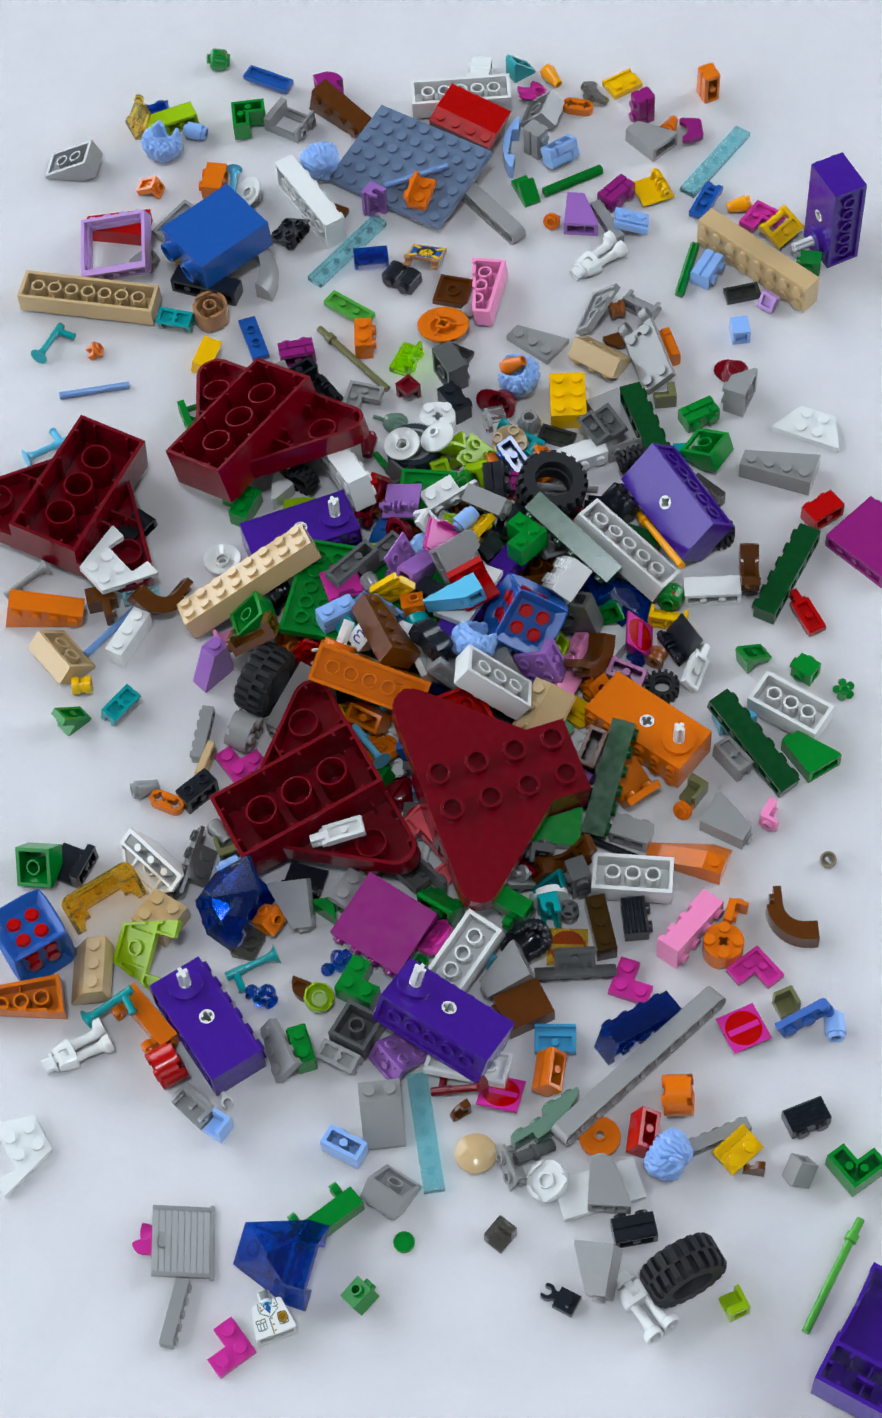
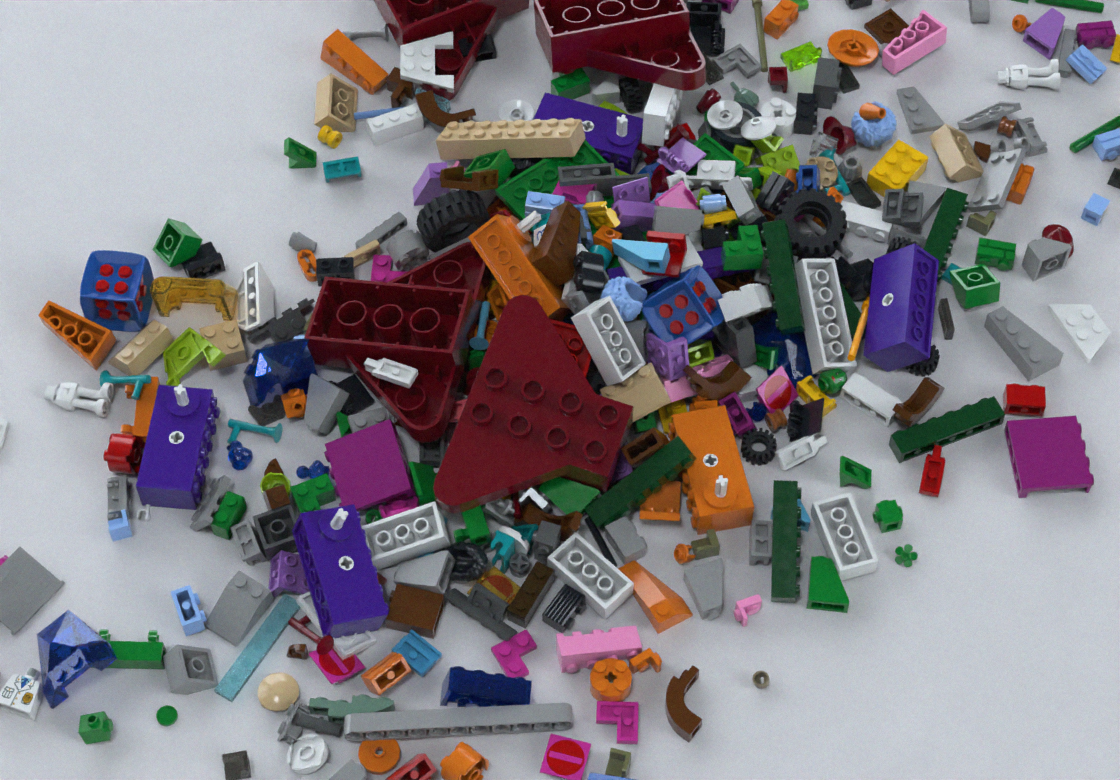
camera: 35 degrees right, 0 degrees up
(332, 1003) = (276, 497): none -> reddish brown brick

